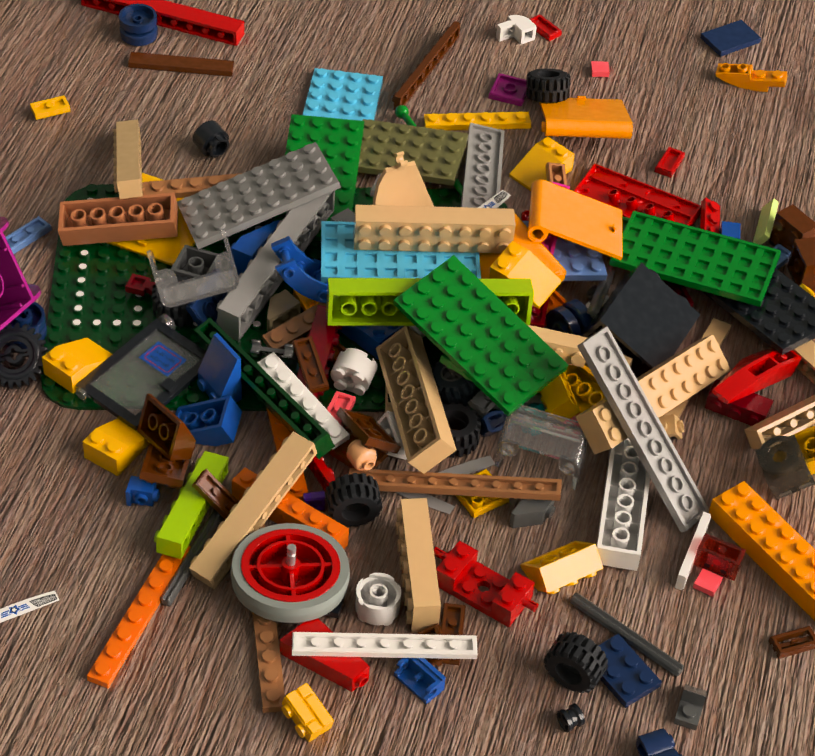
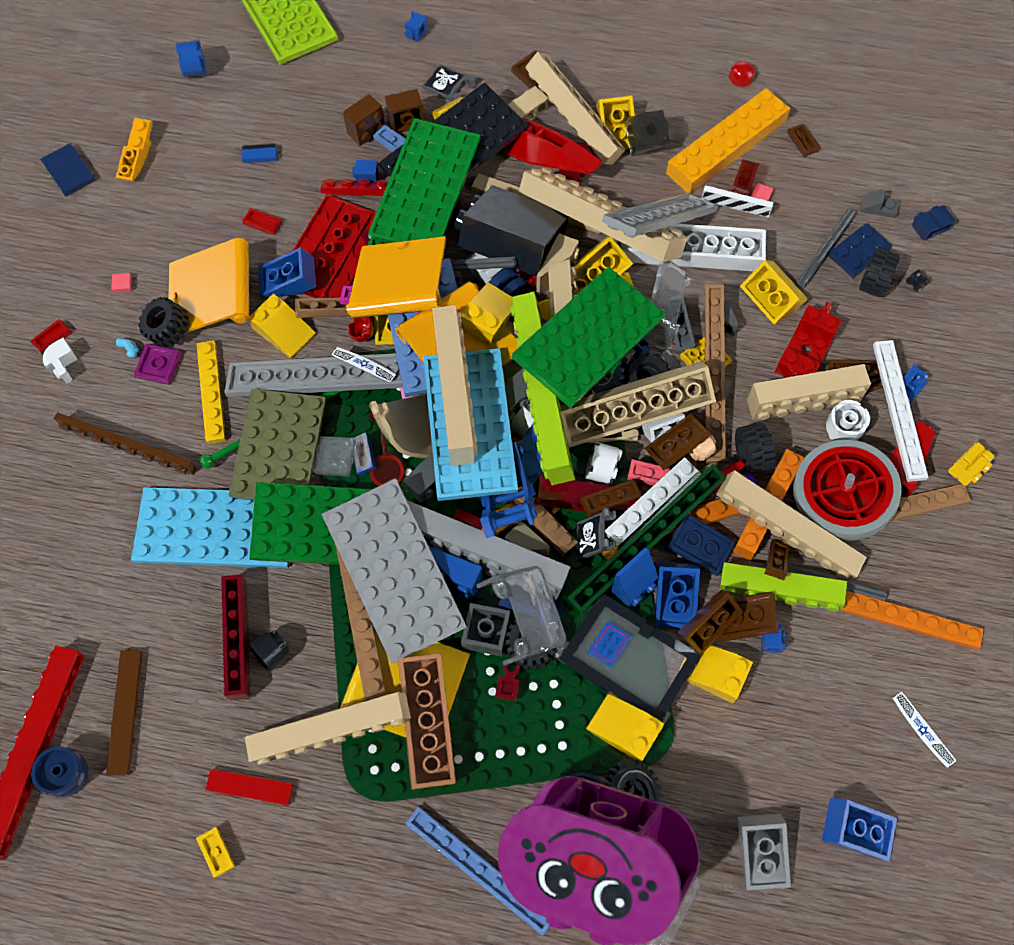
camera: 90 degrees left, 20 degrees up
(97, 130) = (249, 787): none -> red tile
(232, 119) = (235, 637): none -> dark red brick
(255, 444) = (700, 544): none -> dark blue tile
(522, 73) = (130, 346): none -> medium azure arm
(524, 465) = (685, 338): none -> dark grey slope
(597, 169) = (287, 274): none -> blue slope
(755, 163) = (259, 153): none -> blue tile
(765, 222) = (345, 144): yellowish green tile -> none

